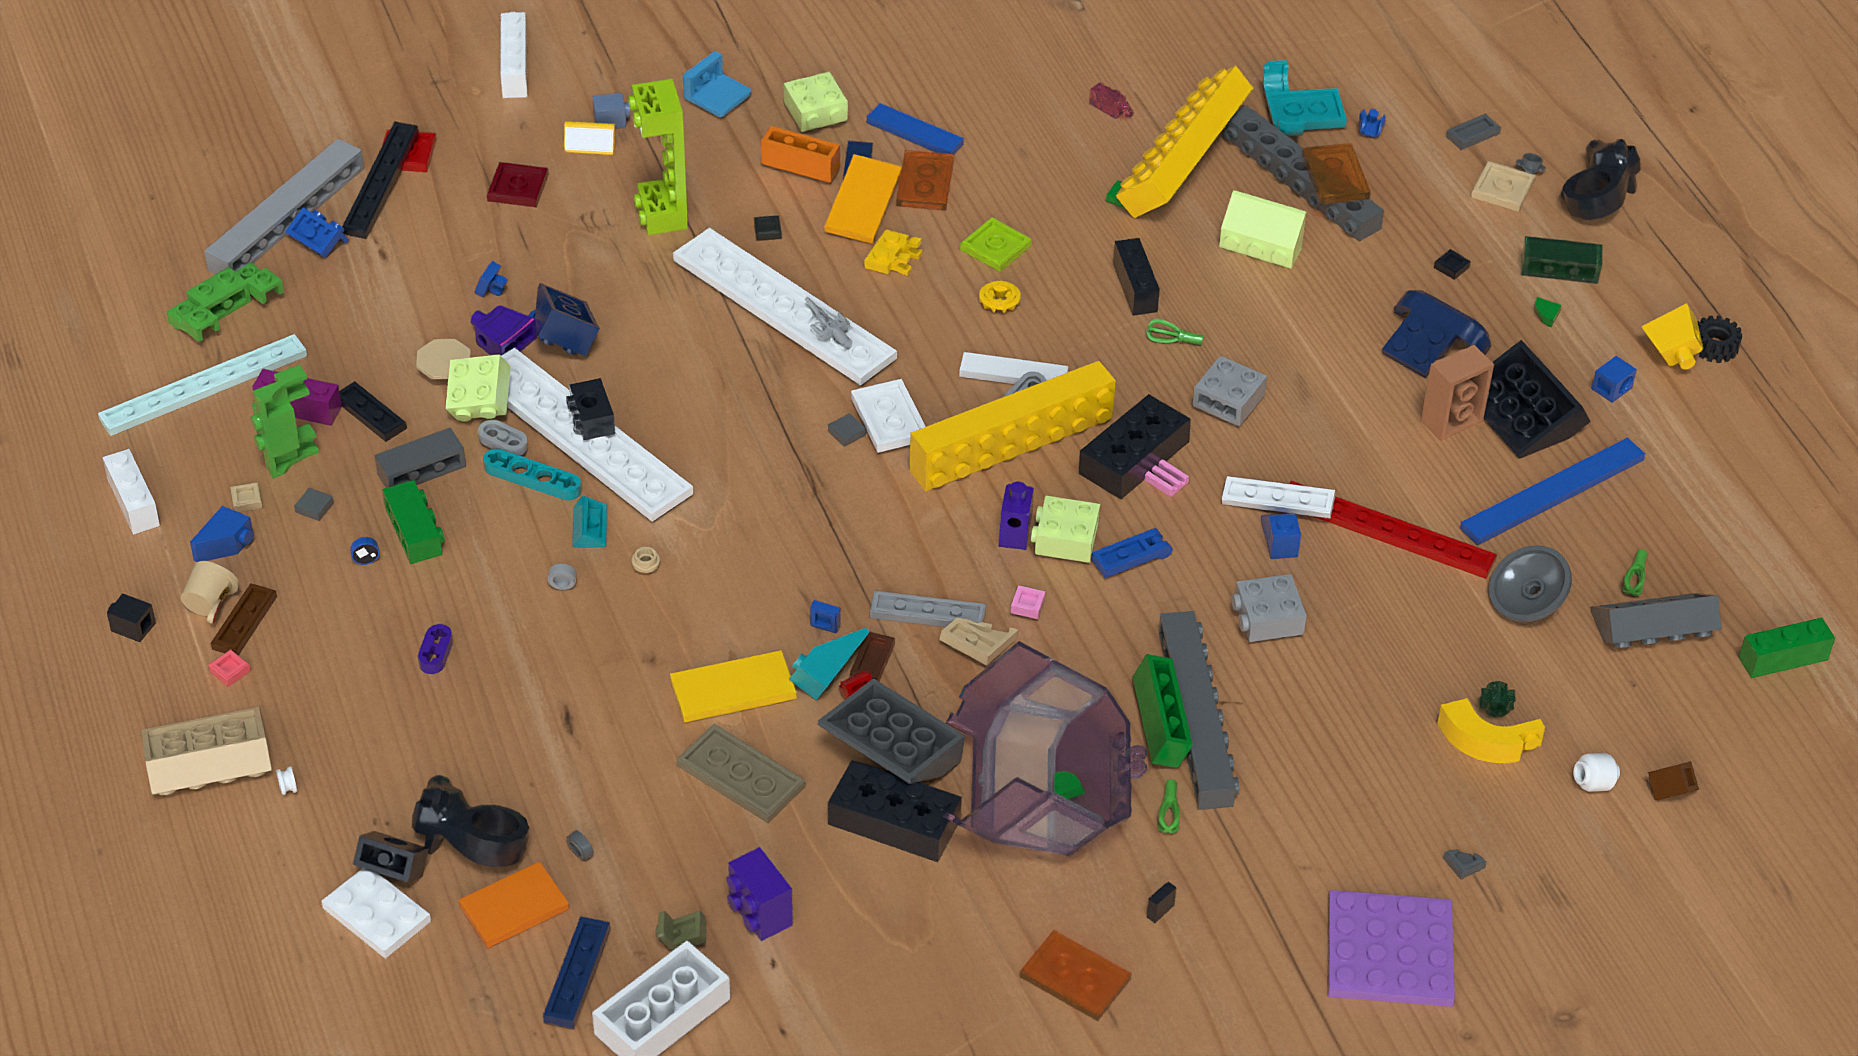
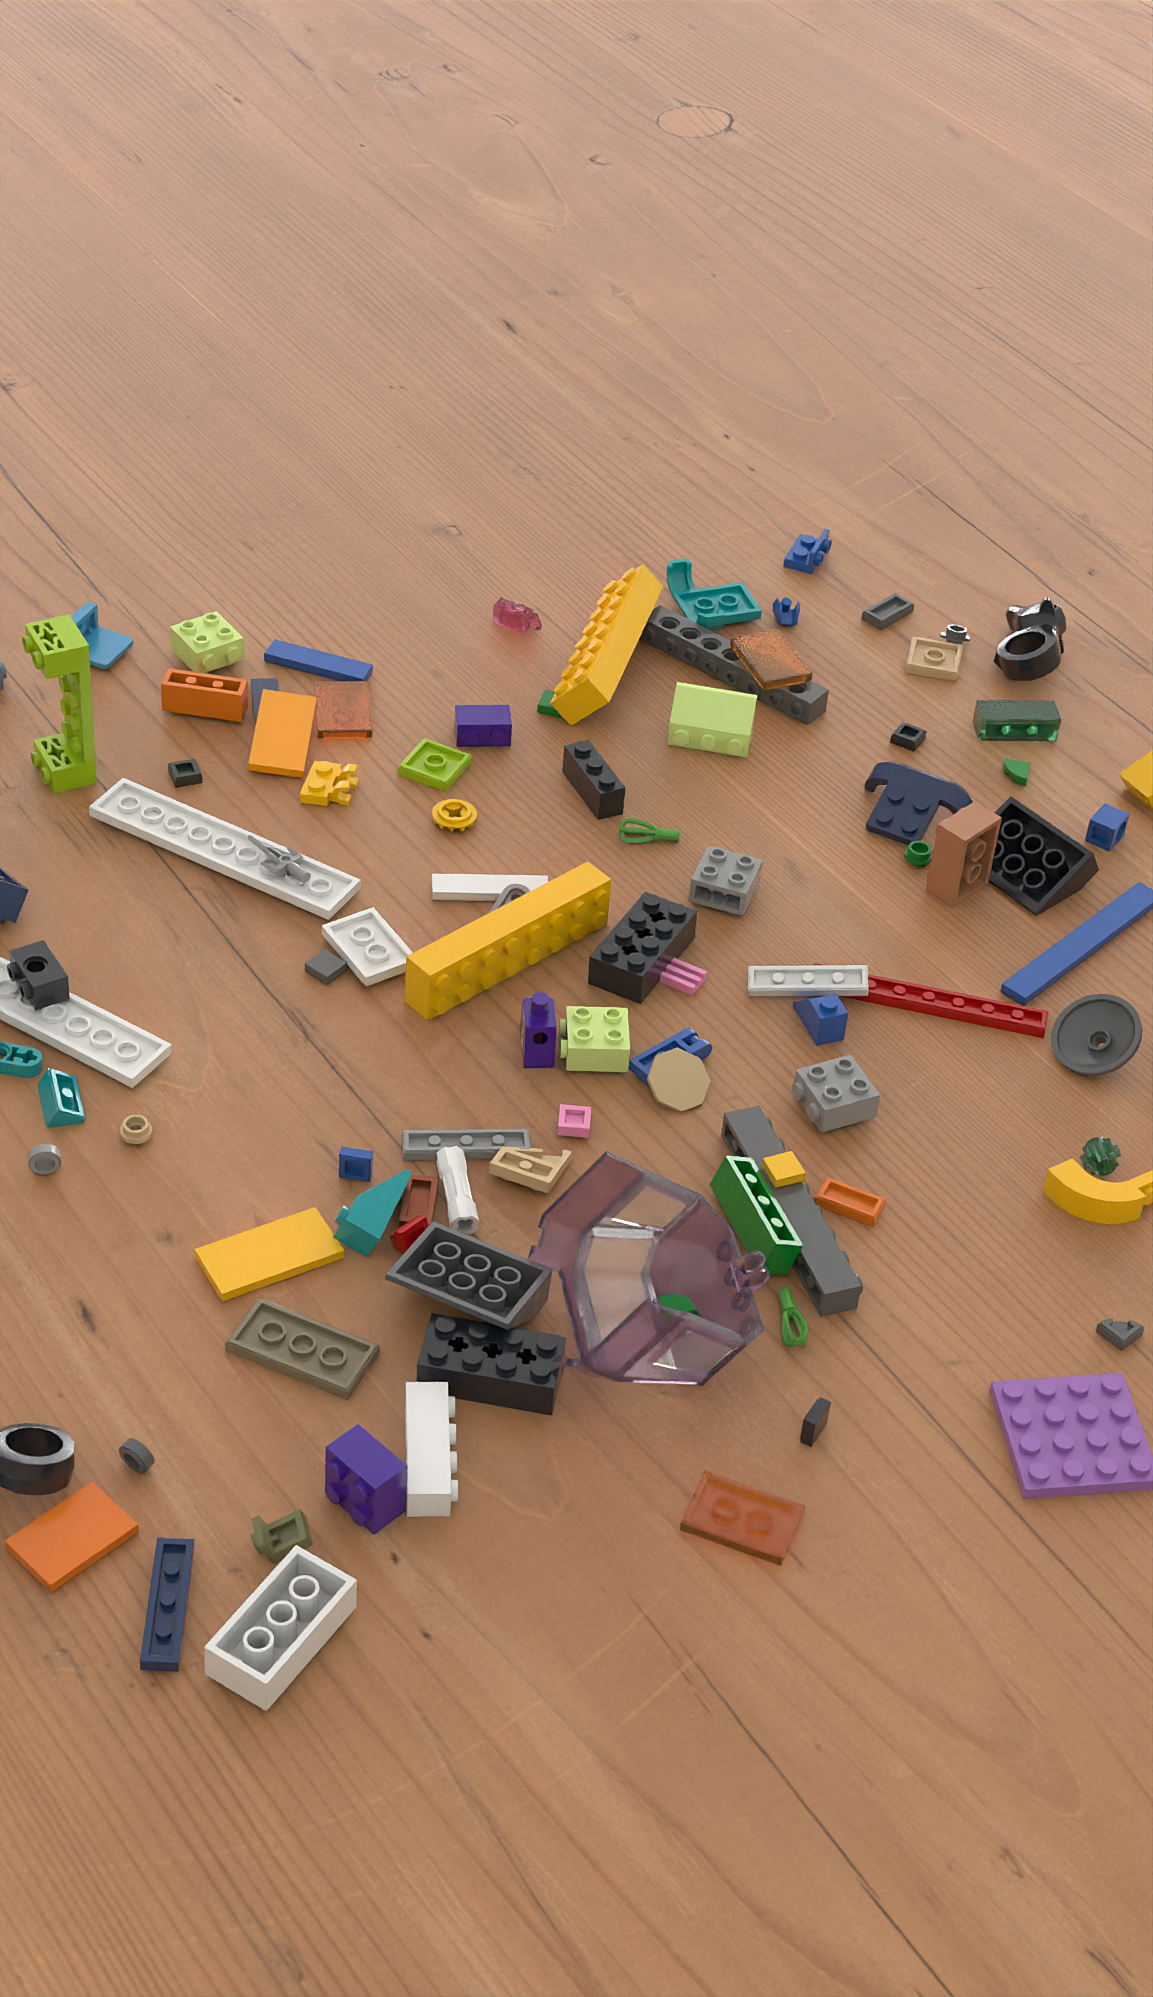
camera: 15 degrees left, 5 degrees down
(822, 876) = (428, 1449): none -> white brick
(906, 666) = (453, 1173): none -> white axle
(1048, 210) = (482, 725): none -> dark purple brick
(1131, 576) = (678, 1080): none -> tan piece
(1196, 673) = (783, 1169): none -> yellow tile
(1255, 709) = (850, 1201): none -> orange tile
(1413, 61) = (808, 552): none -> blue bracket
(1419, 383) = (918, 853): none -> green plate

